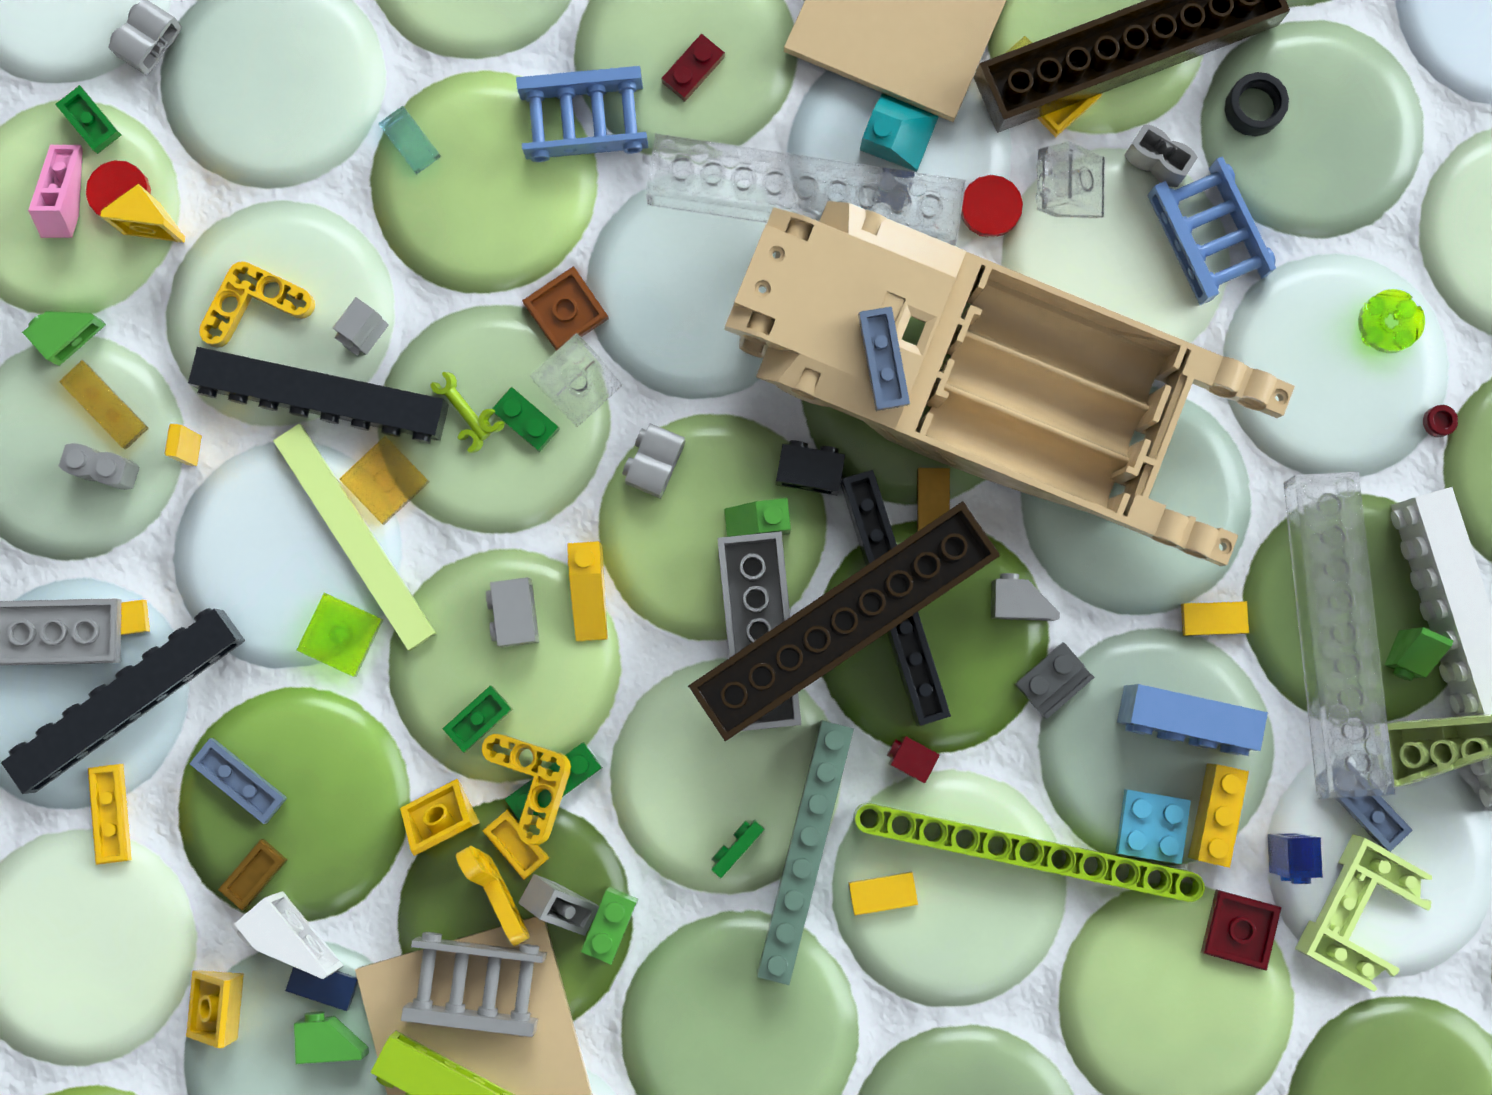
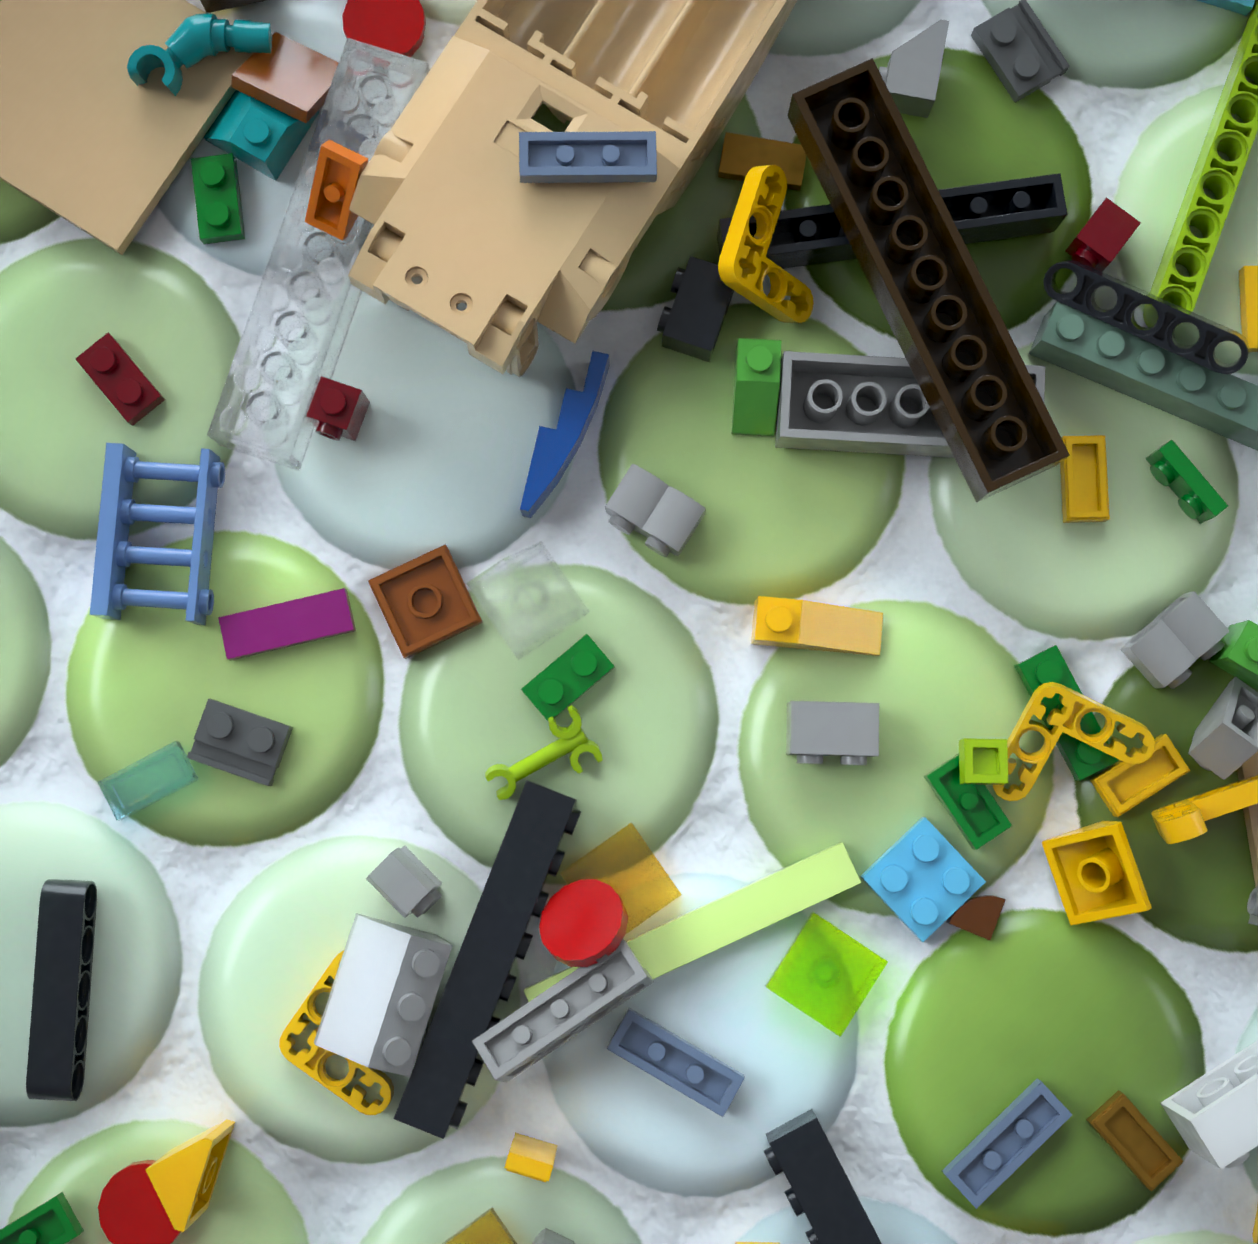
camera: 80 degrees left, 0 degrees up
(256, 108) = (61, 990): none -> black beam
(263, 537) = (676, 1062): none -> sand blue plate
(281, 325) = (383, 994): none -> slope
(285, 450) = (561, 1013): none -> light grey fence
(348, 454) = (583, 923): none -> red tile
(397, 738) = (978, 915): none -> reddish brown tile
(417, 695) = (923, 879): none -> medium azure plate
(445, 198) = (240, 742): none -> dark grey plate
(504, 722) = (983, 761): none -> lime plate
(534, 215) = (287, 624): none -> magenta tile
(616, 855) = (1176, 641): none -> light grey brick
(687, 382) = (558, 446): none -> blue slope
(691, 222) = (337, 409): none -> dark red brick
(730, 773) = (1085, 480): none -> yellow tile
(837, 111) = (217, 198): none -> green plate
(840, 499) = (744, 258): none -> yellow beam
(841, 187) = (334, 188): none -> orange slope
(856, 810) = (1162, 332): none -> black beam
(933, 143) = (287, 78): none -> tile
(945, 71) = (193, 41): none -> teal piece

